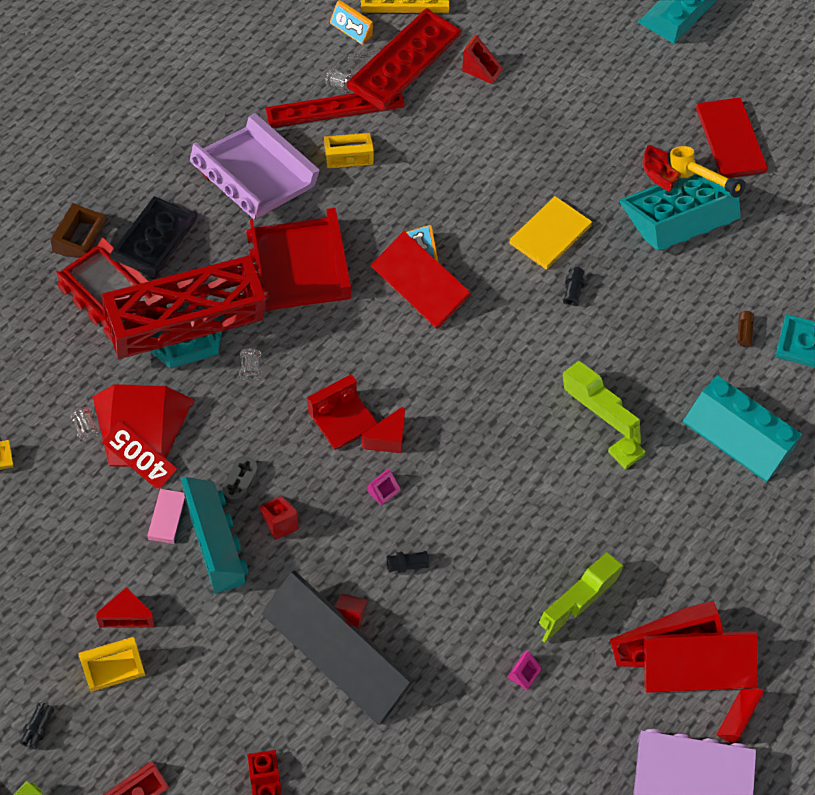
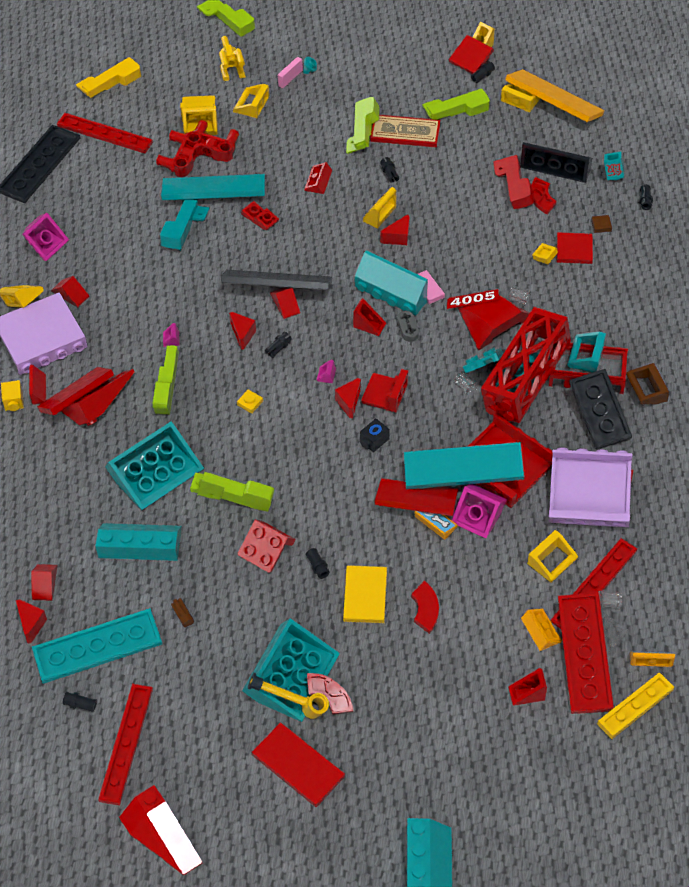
camera: 145 degrees right, 5 degrees down
(95, 278) = (587, 364): none -> teal tile
(214, 356) = (488, 356): none -> teal wing
(352, 263) = (463, 465): none -> teal tile
(369, 227) = (478, 510): none -> dark pink slope
(402, 371) = (374, 435): none -> black brick
(419, 104) = (540, 628): none -> light orange slope
(432, 609) = (243, 328): none -> red slope
(498, 514) = (250, 401): none -> yellow plate
(502, 185) = (427, 607): none -> red tile
(608, 334) = (264, 545): none -> bracket
(669, 504) = (154, 466): none -> teal slope
(782, 718) = (12, 395): none -> yellow brick

